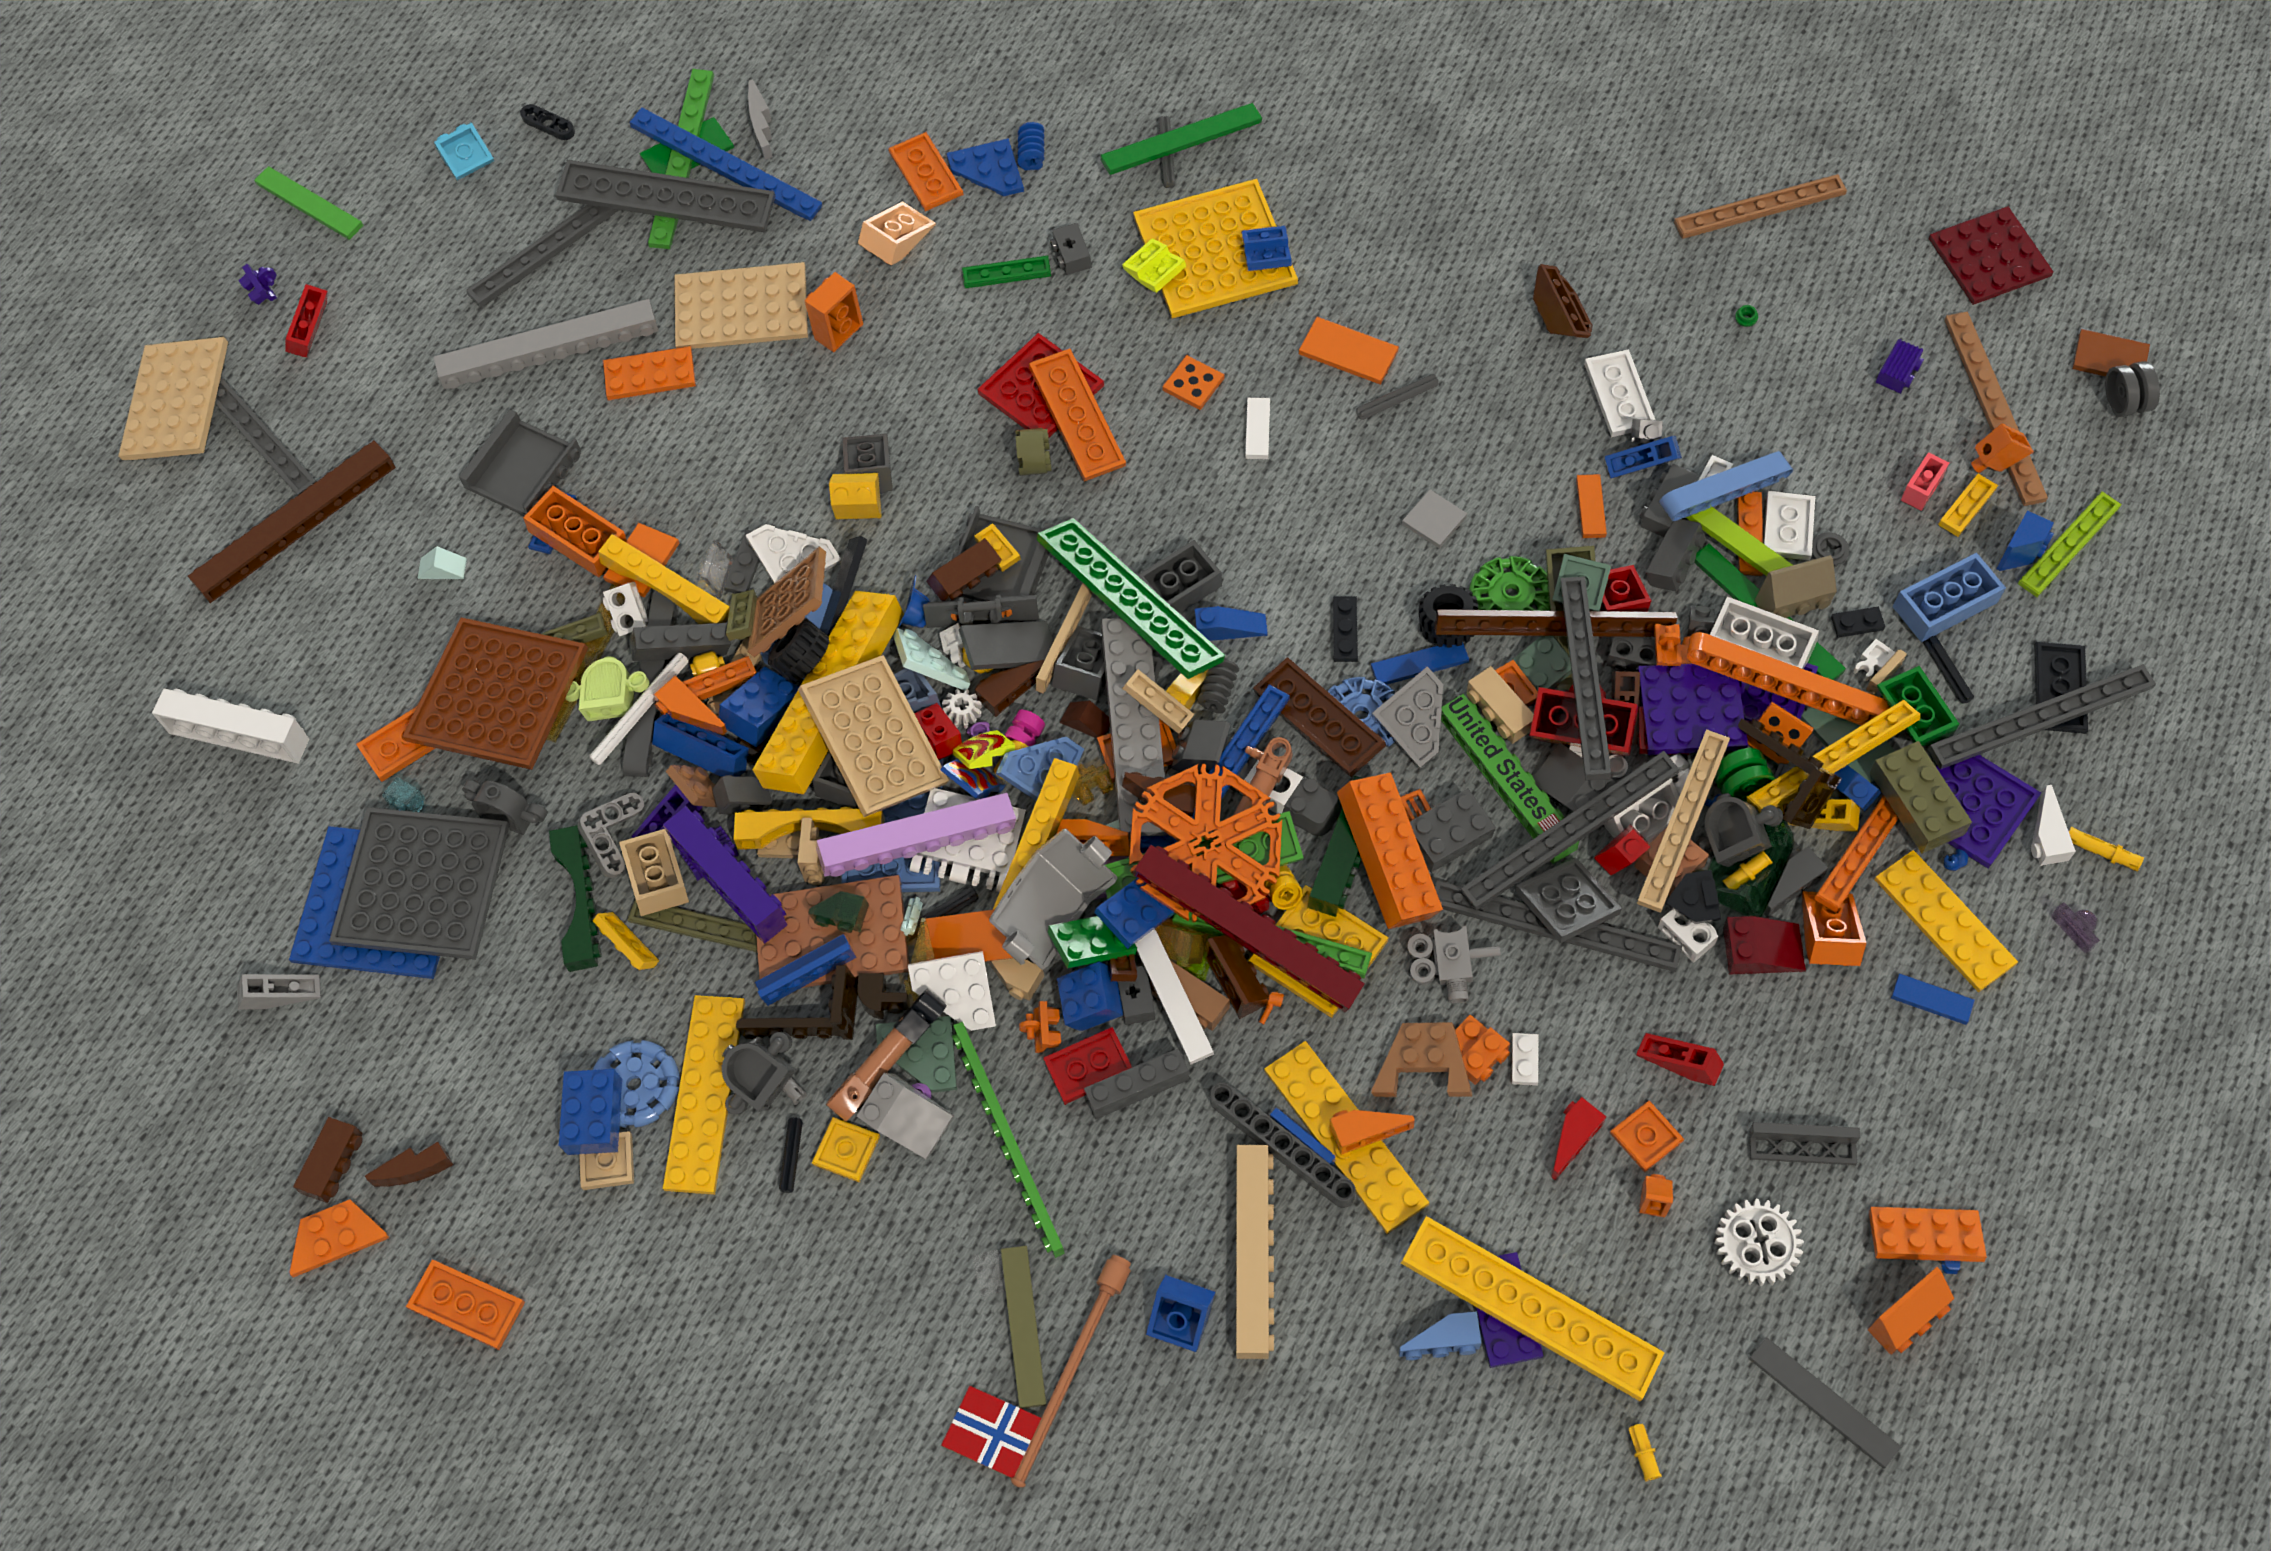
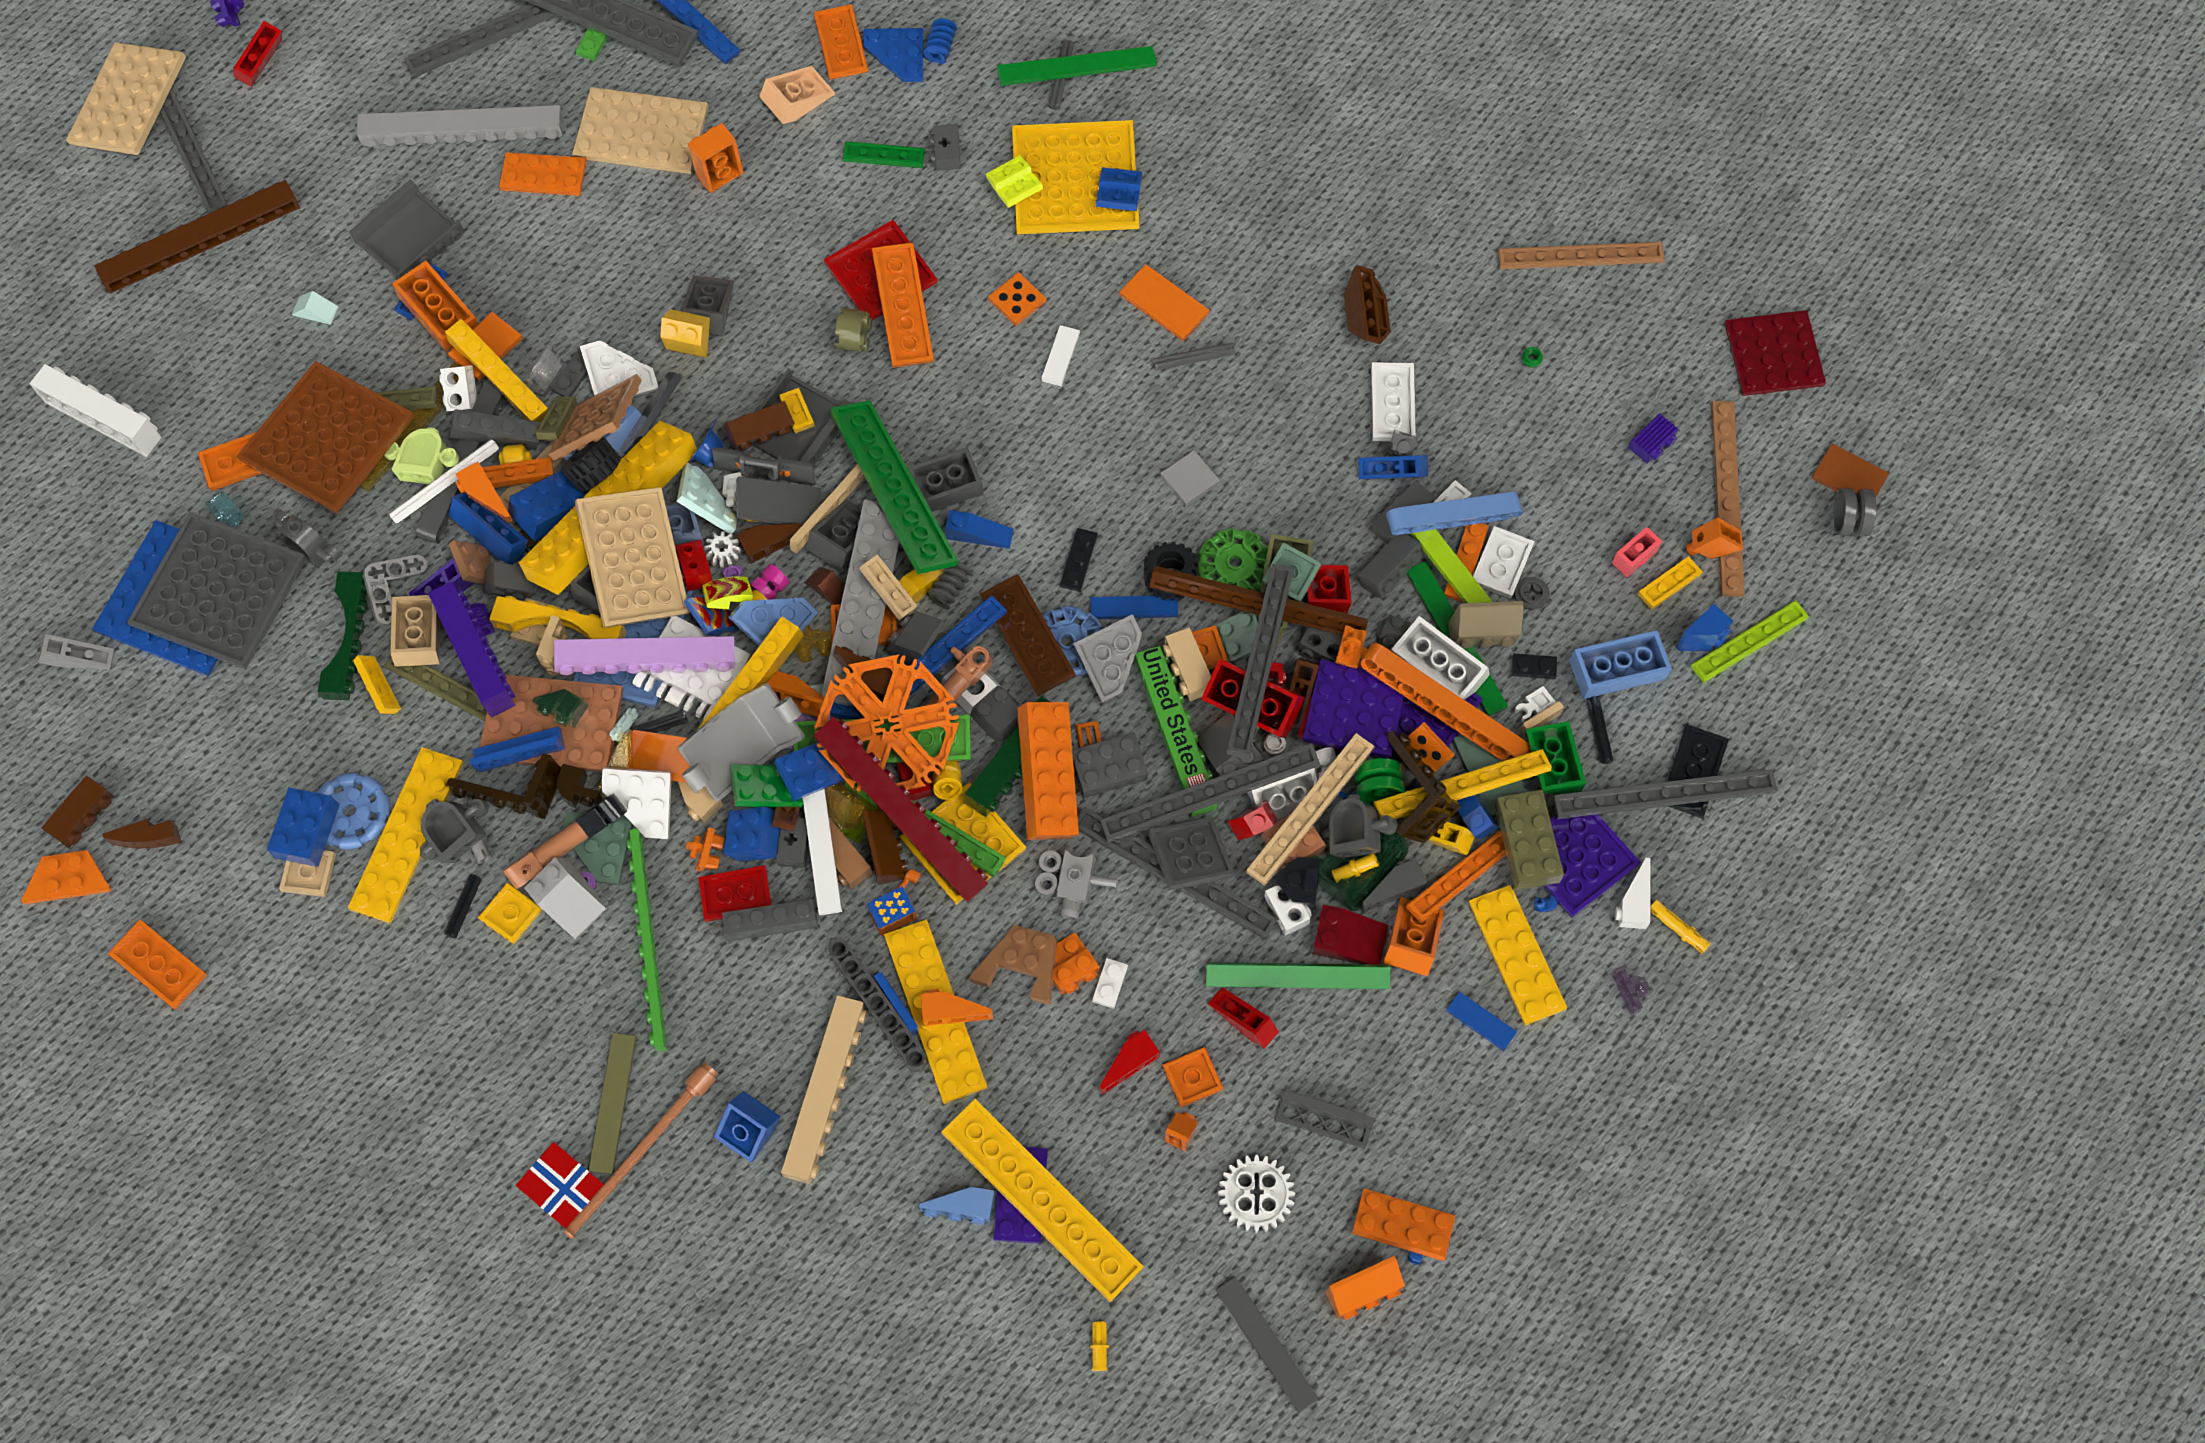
camera: 10 degrees right, 5 degrees up
(1266, 1041) = (892, 911): none -> blue piece
(1591, 506) = (1333, 500): orange tile -> none
(1723, 999) = (1297, 975): none -> tile

